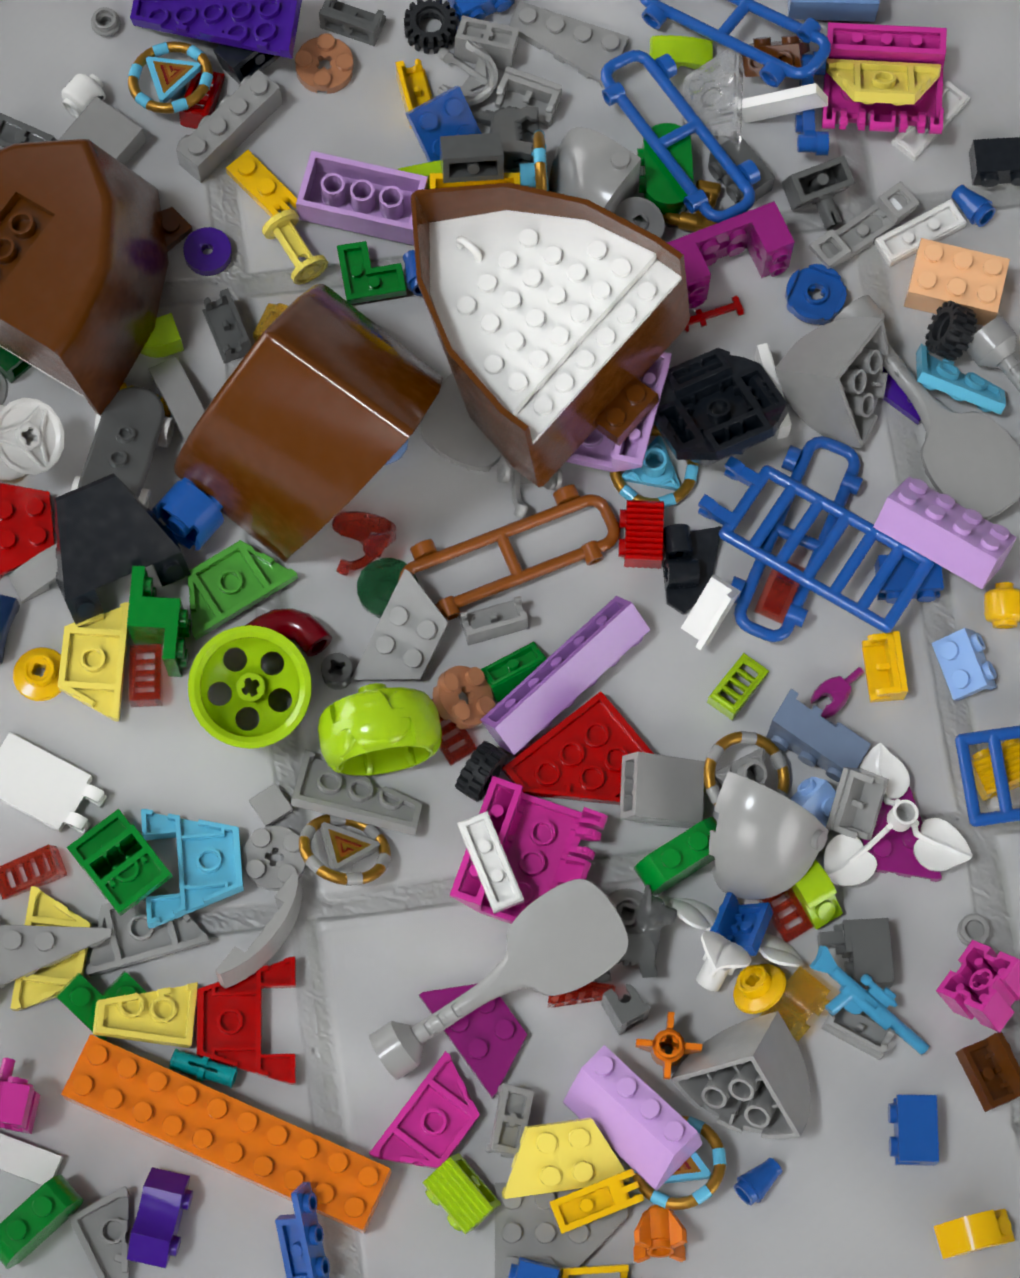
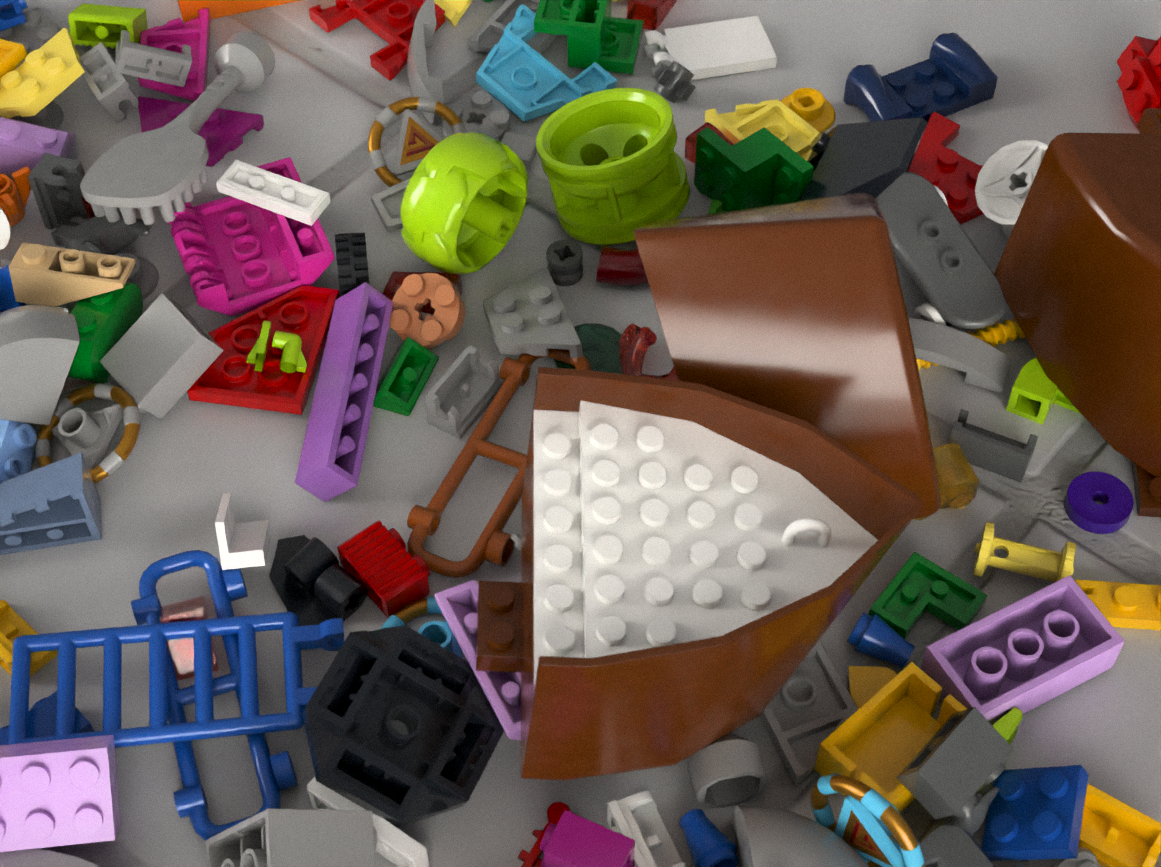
camera: 140 degrees right, 20 degrees down
(109, 764) = (674, 81): none -> dark grey gear
(466, 1093) = (152, 62): none -> light grey hinge
(584, 751) = (291, 343): none -> lime piece
(682, 879) = (64, 275): none -> tan slope
(722, 704) = (163, 485): lime slope -> none
(837, 690) = (49, 581): magenta hand -> none

